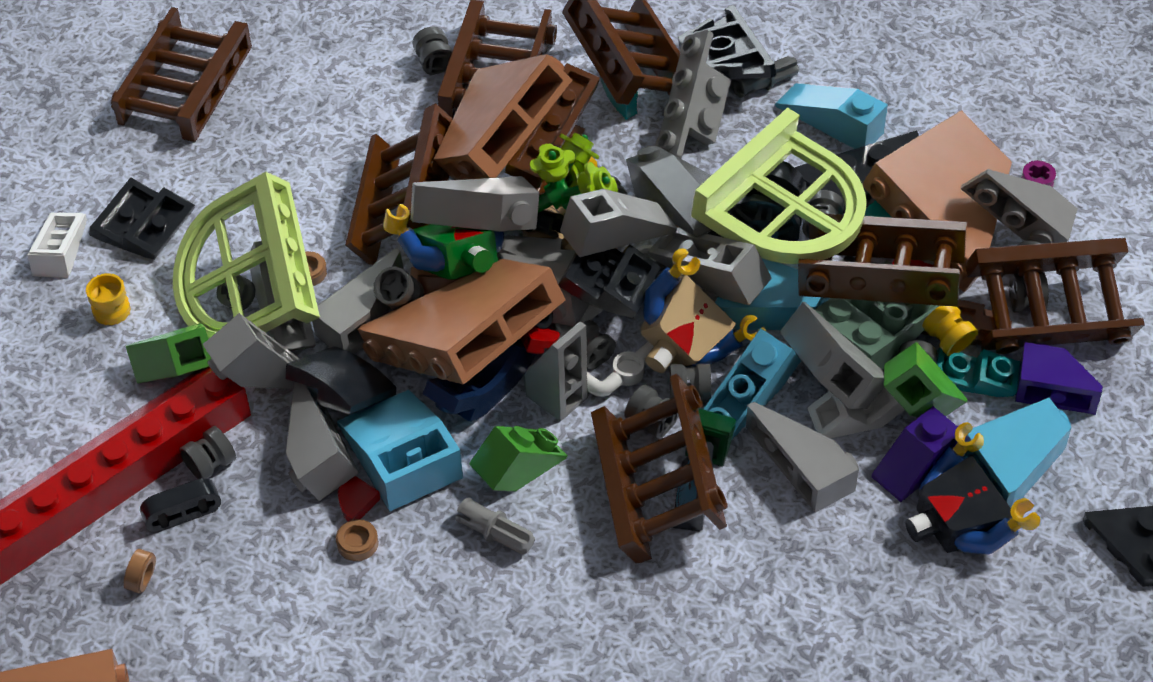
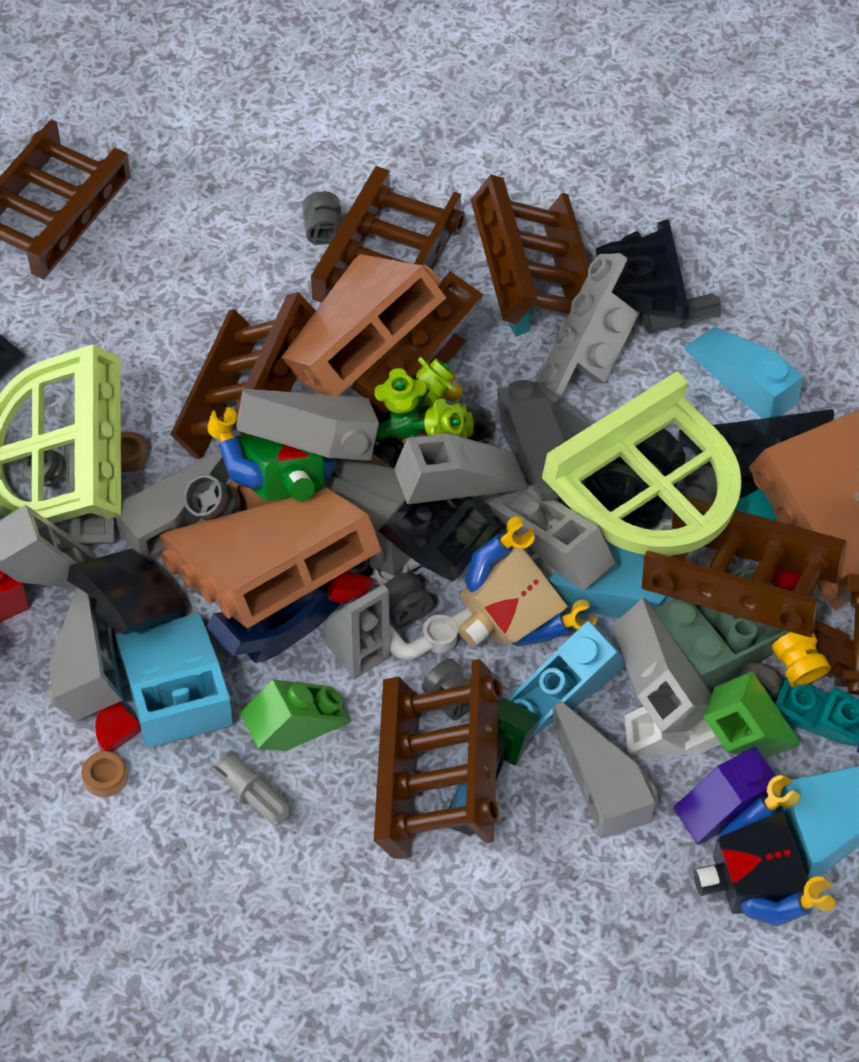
camera: 10 degrees right, 5 degrees up
(699, 377) = (511, 659): dark grey wheel -> none

